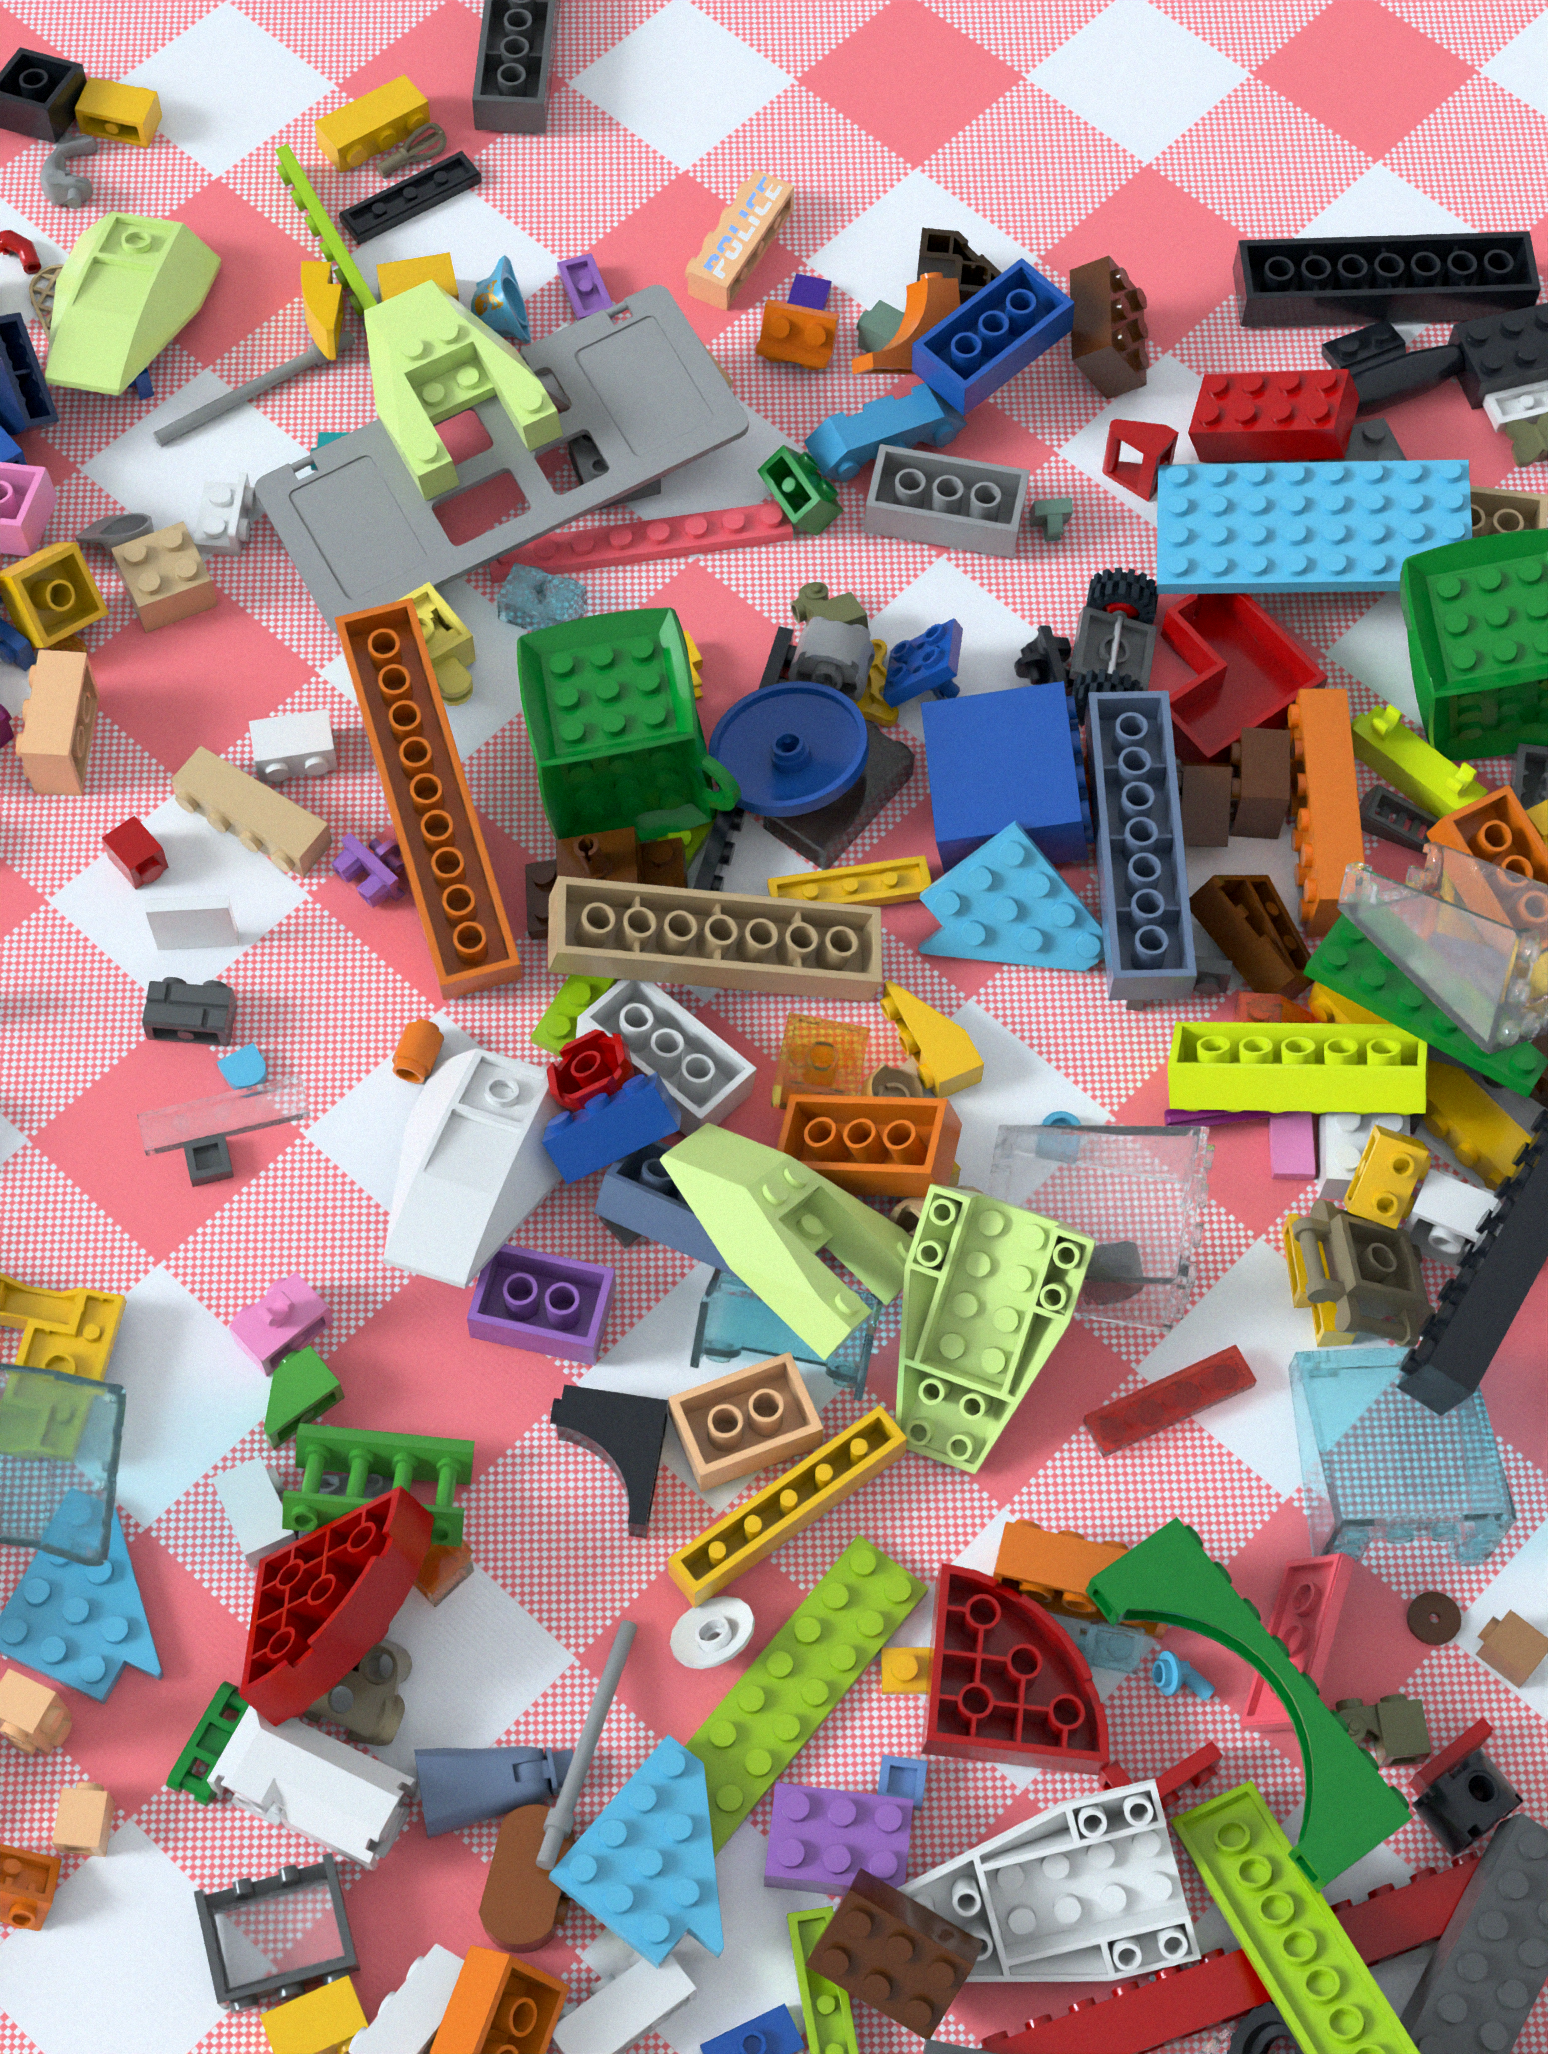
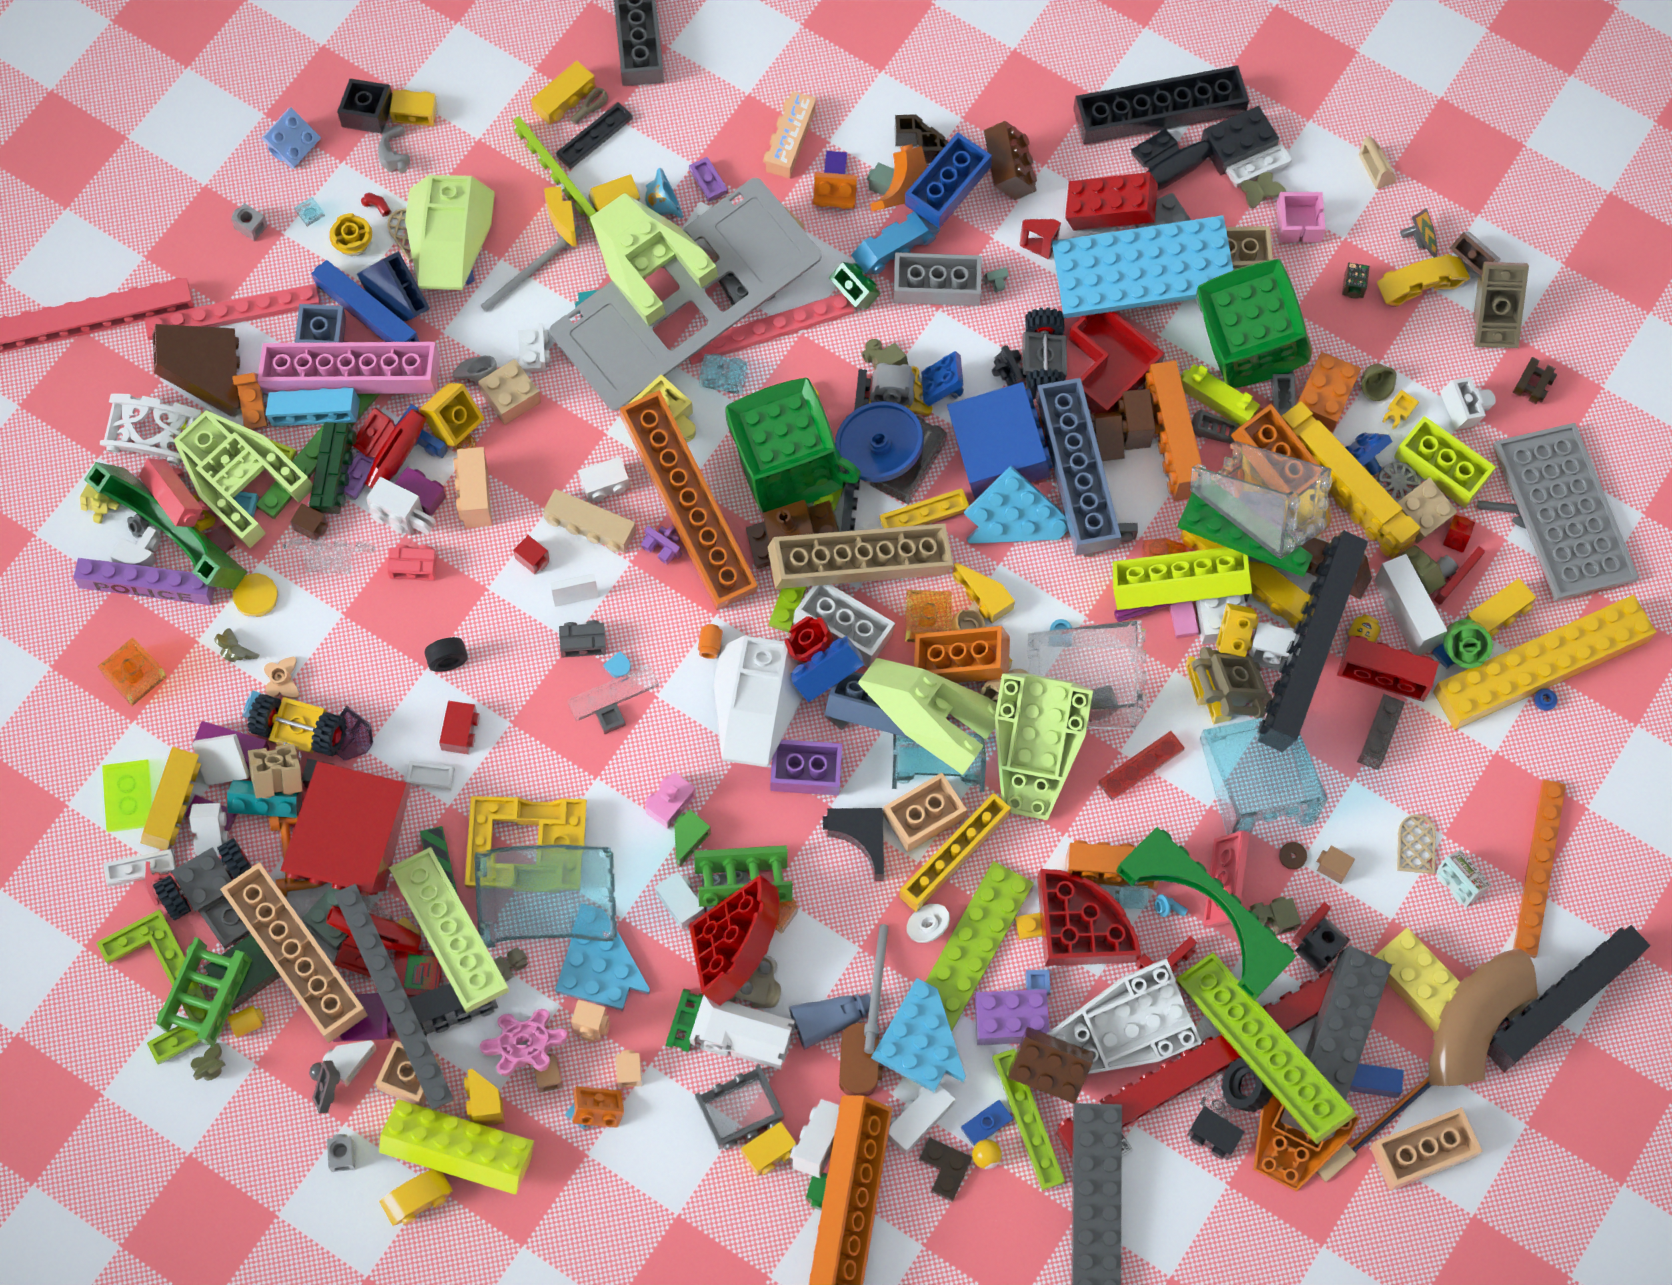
camera: 10 degrees left, 5 degrees up
(1254, 932) = (1147, 505): reddish brown wedge -> none

